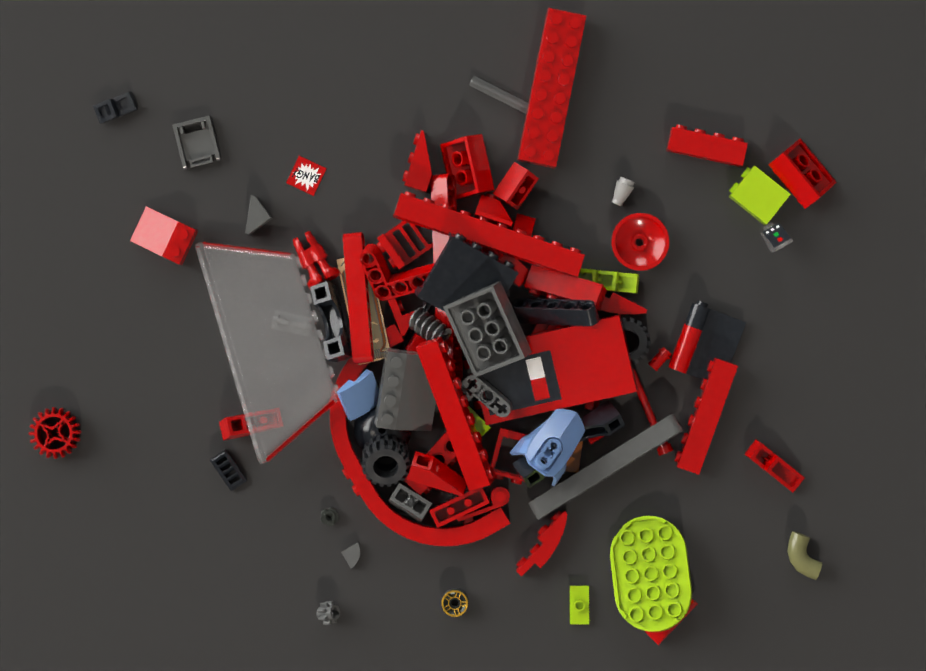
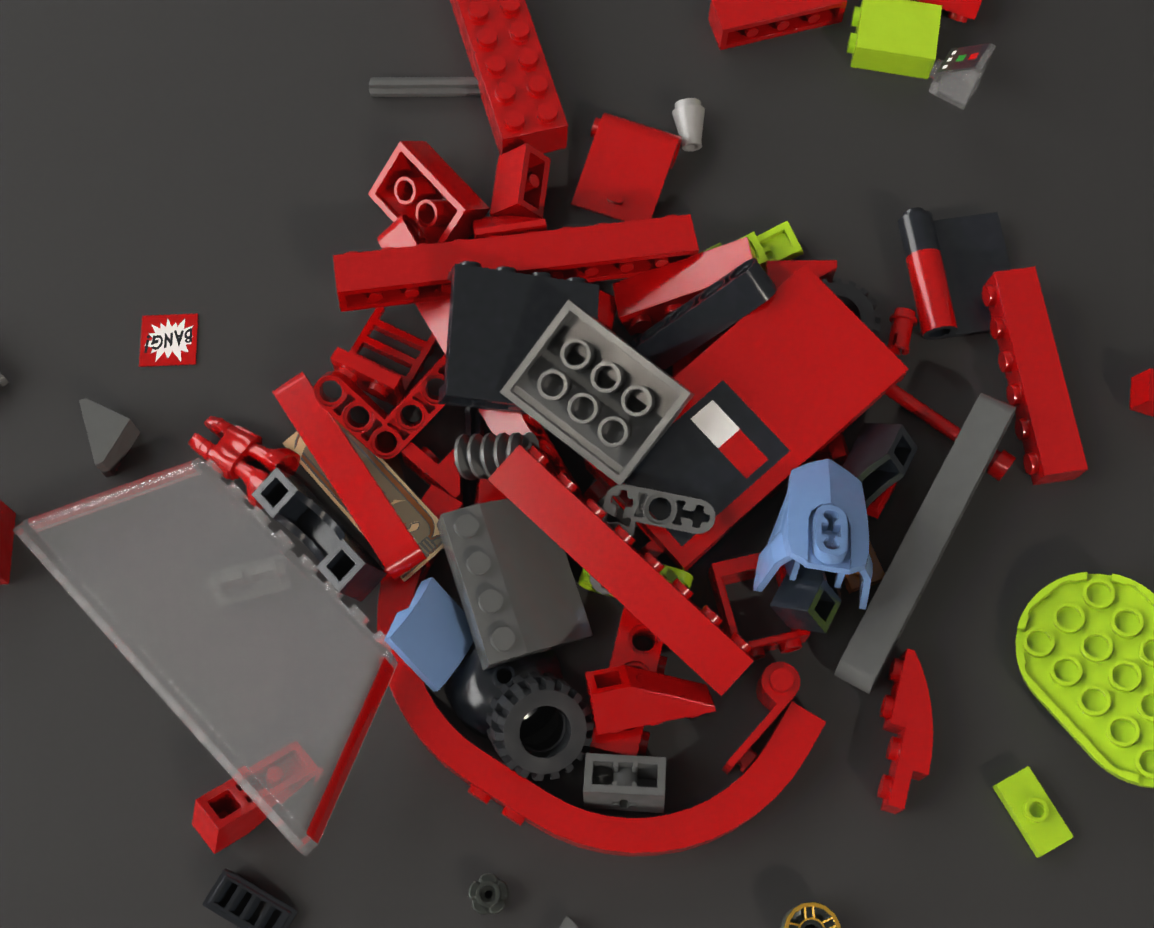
camera: 30 degrees left, 20 degrees down
(420, 169) = (346, 222): red slope -> none
(459, 506) = (717, 740): red brick -> none
(577, 198) = (625, 168): none -> red door
(654, 239) = (764, 157): red dish -> none

